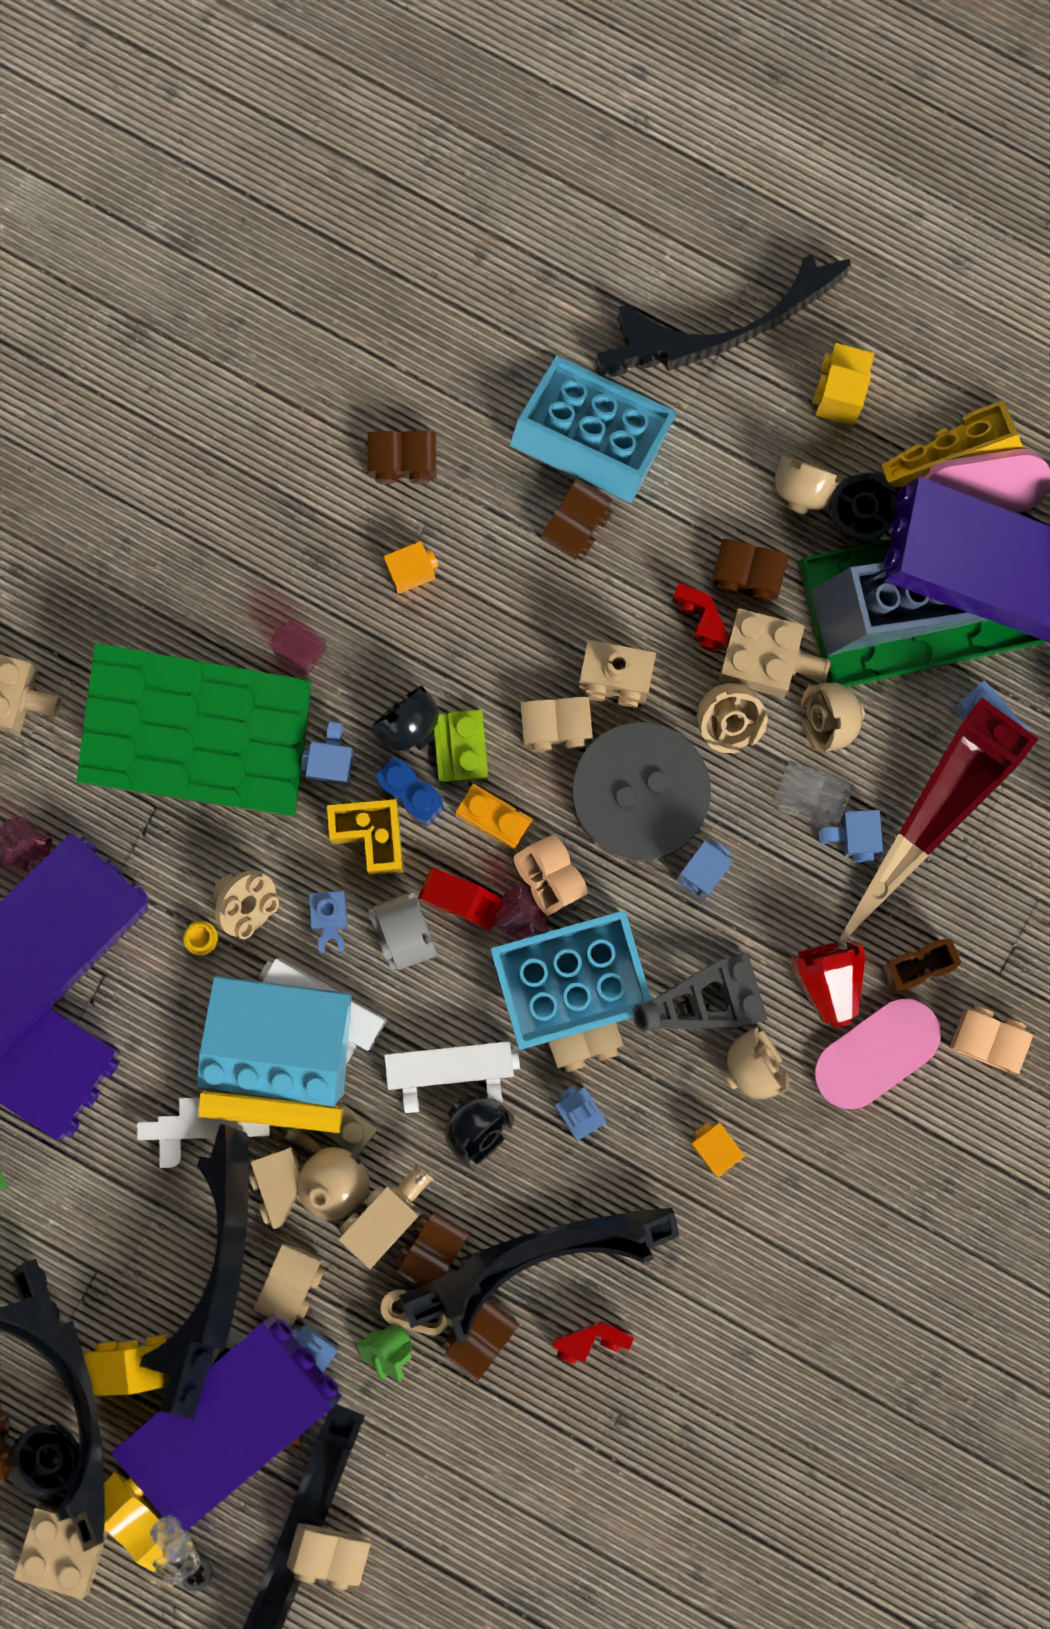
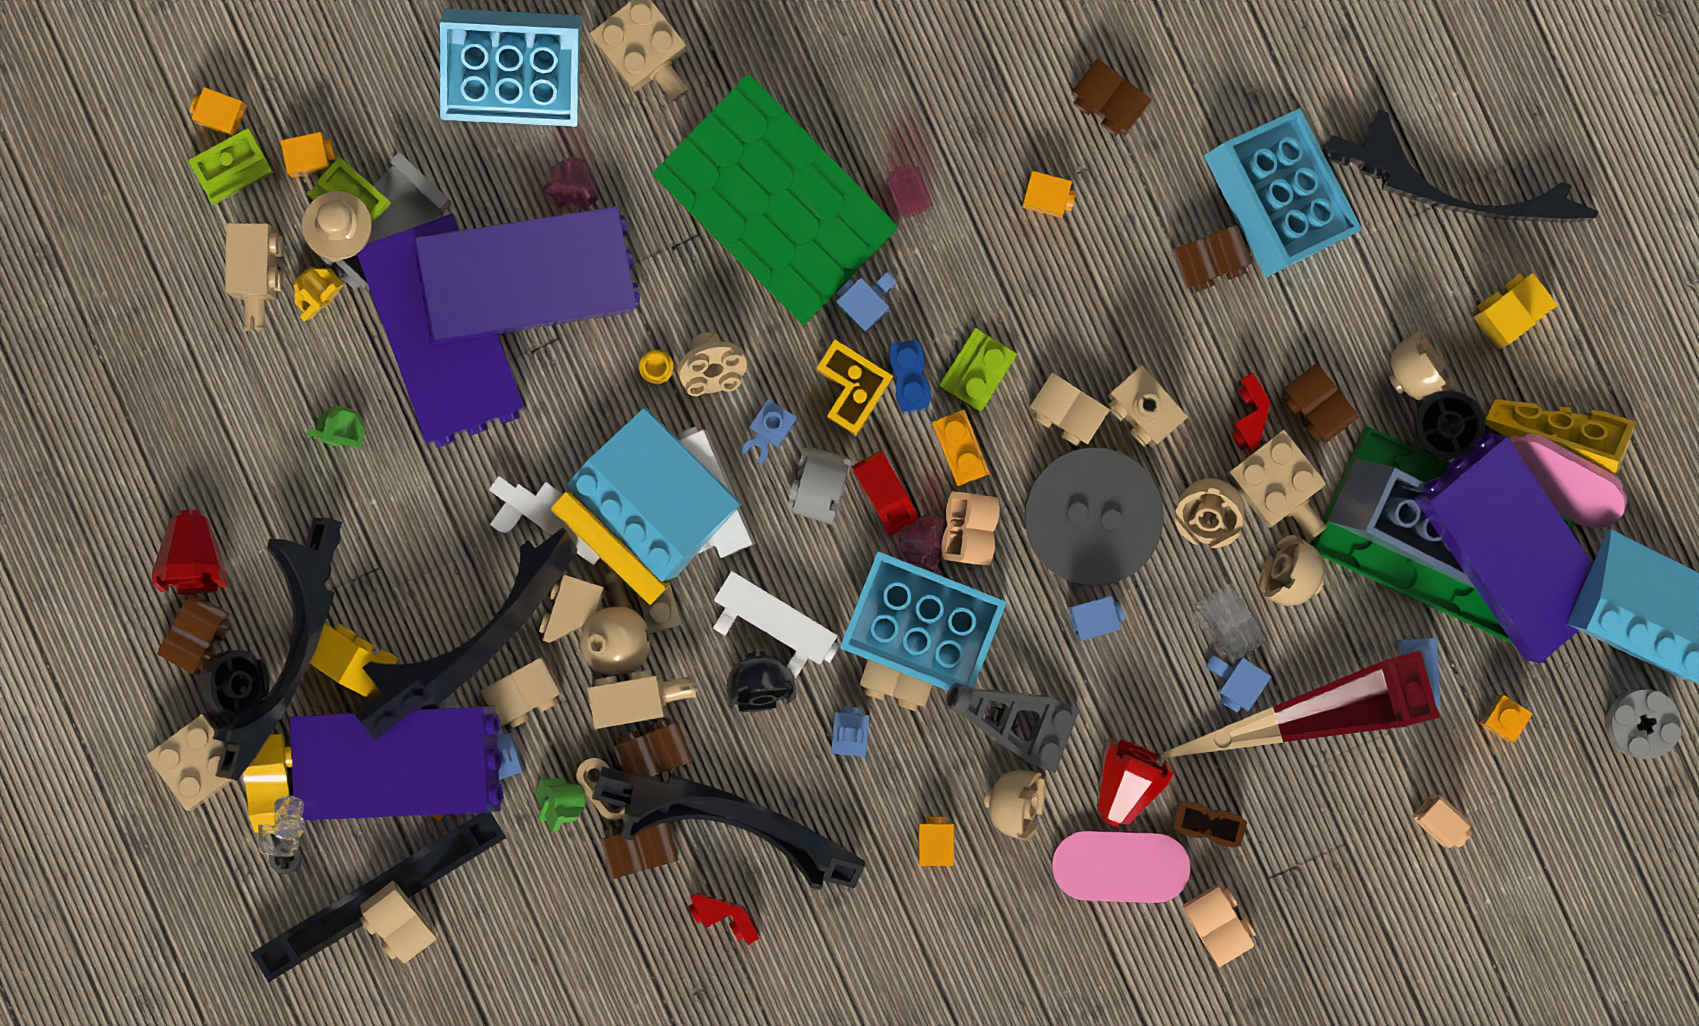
camera: 40 degrees right, 5 degrees up
(408, 722) = (950, 319): black cylinder -> none

